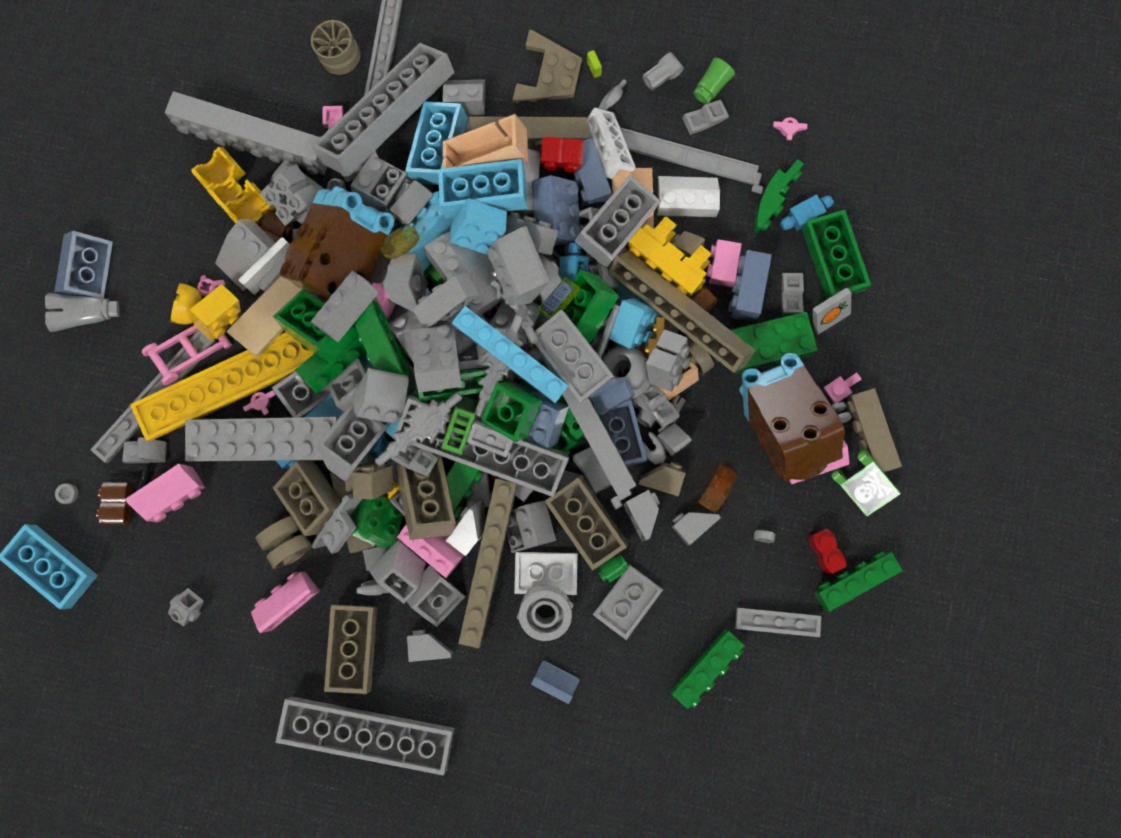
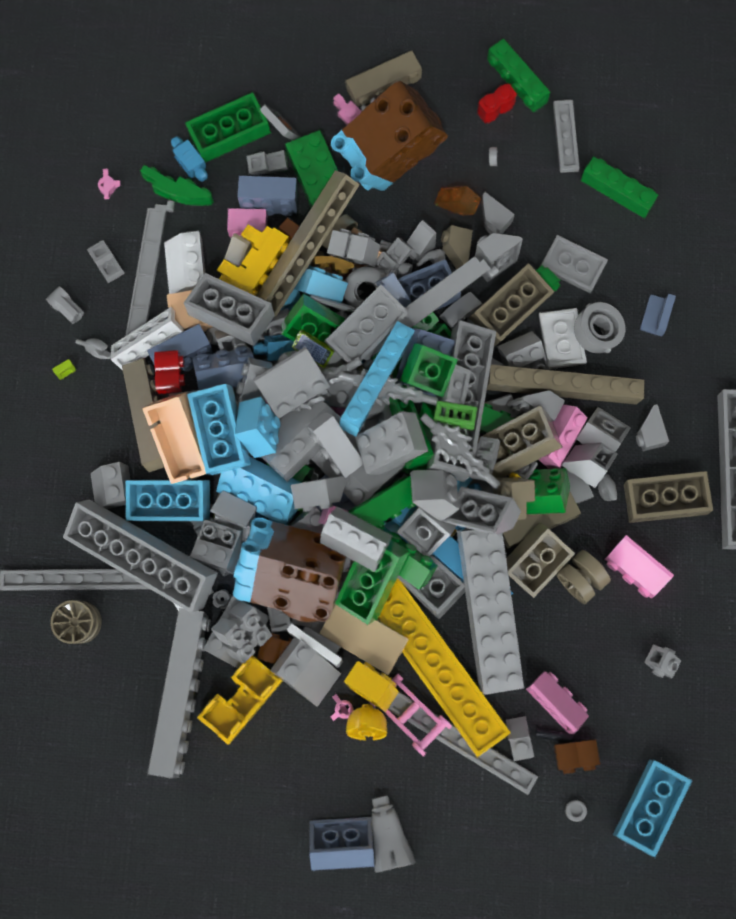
camera: 100 degrees left, 5 degrees down
(260, 402) = (452, 629): bright pink piece -> none
(332, 115) = (151, 615): bright pink plate -> none
(339, 526) = (563, 521): light grey bracket -> none
(400, 242) = (280, 504): clear yellow tile -> none
(557, 74) = (75, 404): dark tan wing -> none
(713, 80) = (69, 257): bright green plant -> none
(867, 487) = (434, 76): flag -> none

